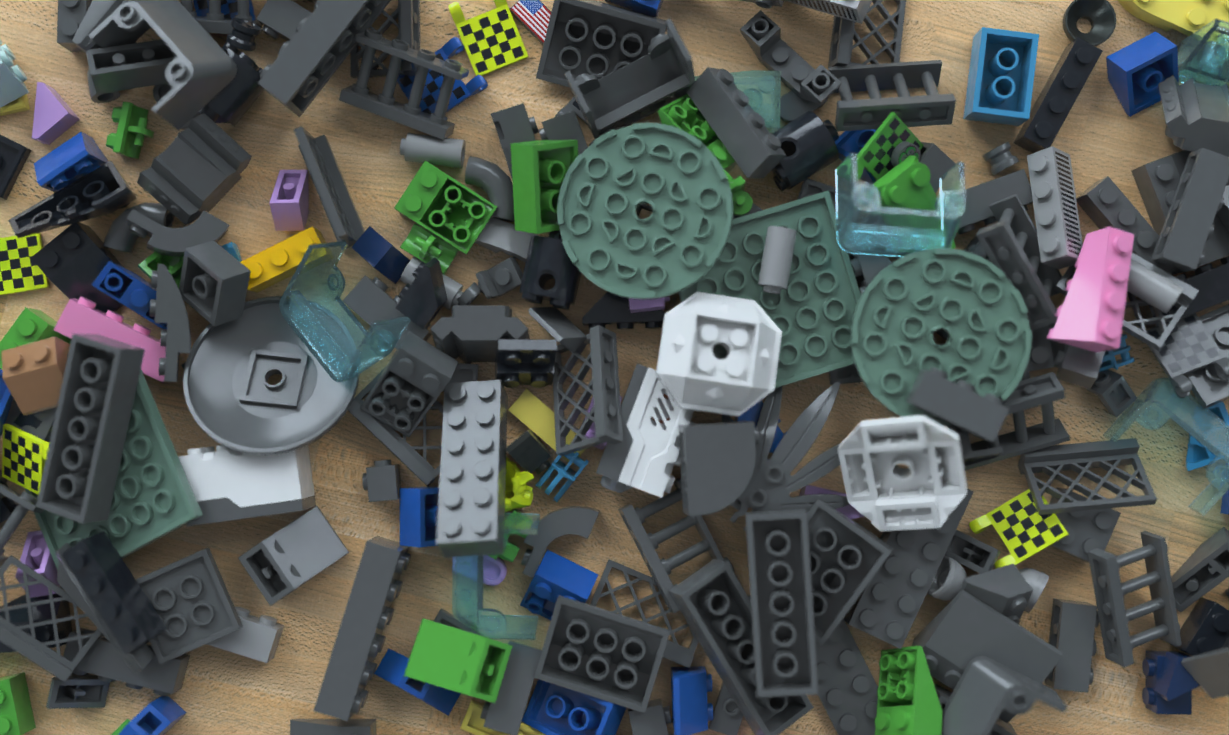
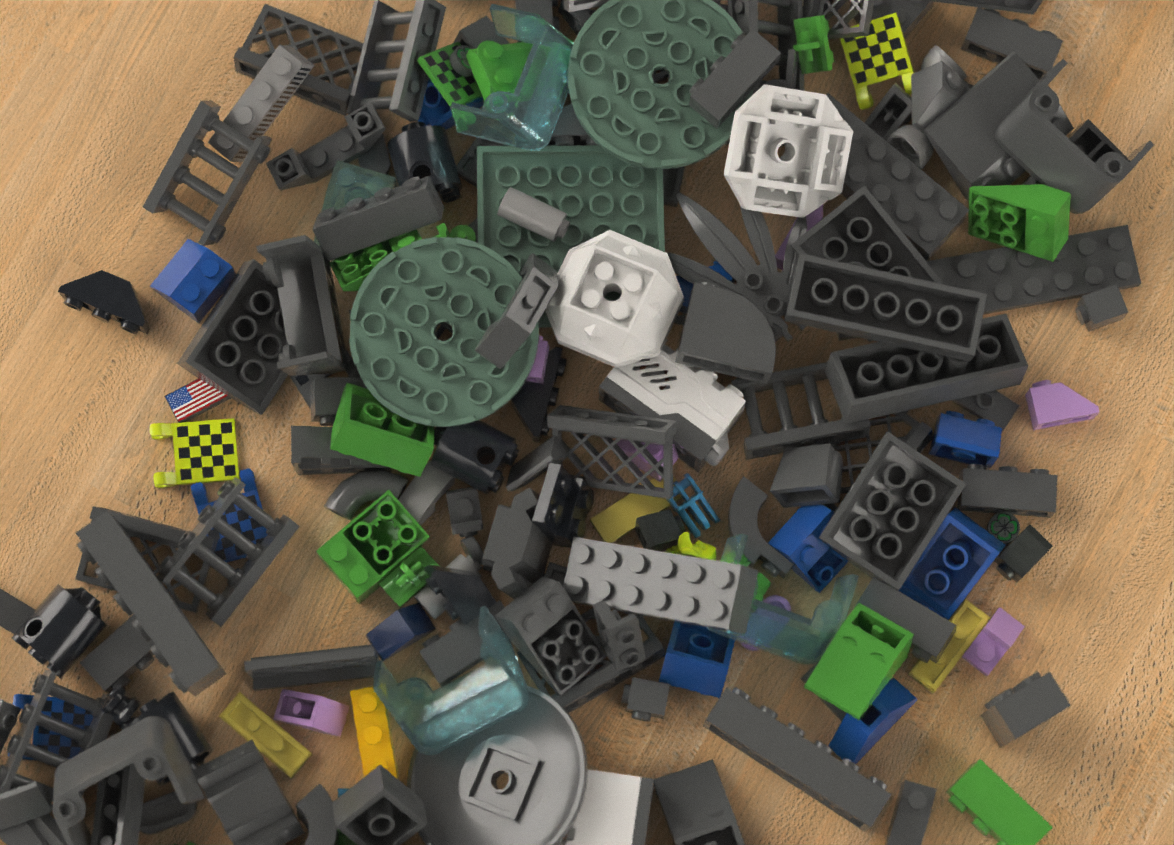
camera: 75 degrees left, 10 degrees down
(264, 167) = (266, 734): none -> light yellow tile
(416, 449) = (619, 637): none -> dark grey bracket
(434, 150) = (302, 547): light grey brick -> none
(614, 570) = (808, 476): none -> dark grey torso
(679, 276) = (522, 313): none -> dark grey slope
(1015, 466) = (813, 44): none -> bright green hips

